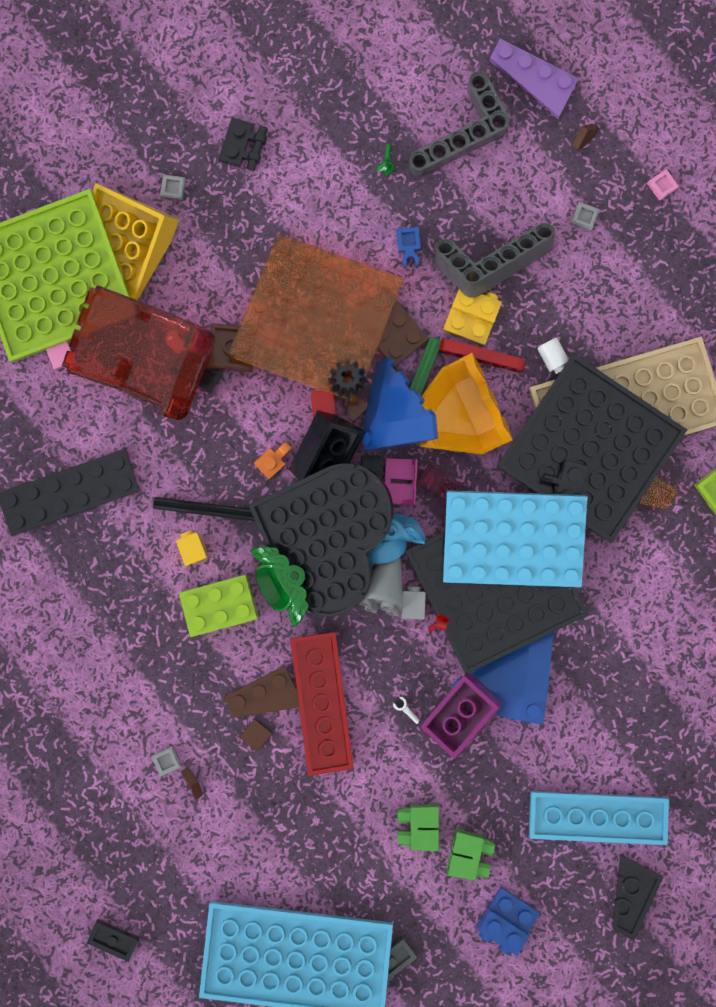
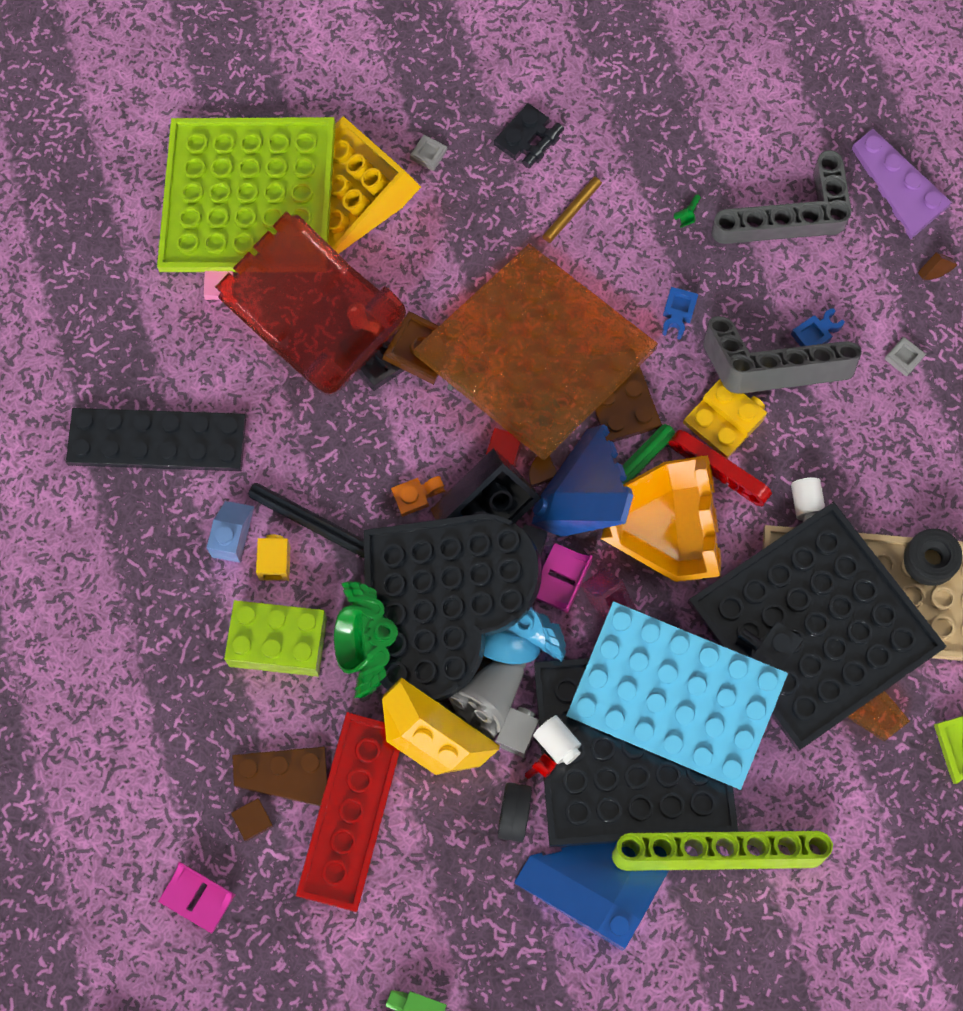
camera: 25 degrees right, 15 degrees down
(152, 539) = (230, 531): none -> medium blue slope
(166, 761) = (126, 808): light grey tile -> none
(192, 783) = (145, 849): reddish brown tile -> none
(229, 801) = (182, 891): none -> dark pink piece
(297, 198) = (572, 209): none -> pearl gold bar
(342, 372) = (543, 414): black gear -> none
(355, 630) = (432, 732): none -> yellow wedge
(406, 710) = (455, 865): white hand -> none
(433, 661) = (514, 812): none -> black tyre
(445, 602) = (558, 741): none -> white brick
(462, 715) = (524, 894): magenta brick -> none
(514, 224) = (816, 331): none -> blue plate
(593, 629) = (735, 844): none -> lime beam
(665, 357) = (921, 569): none -> black tyre

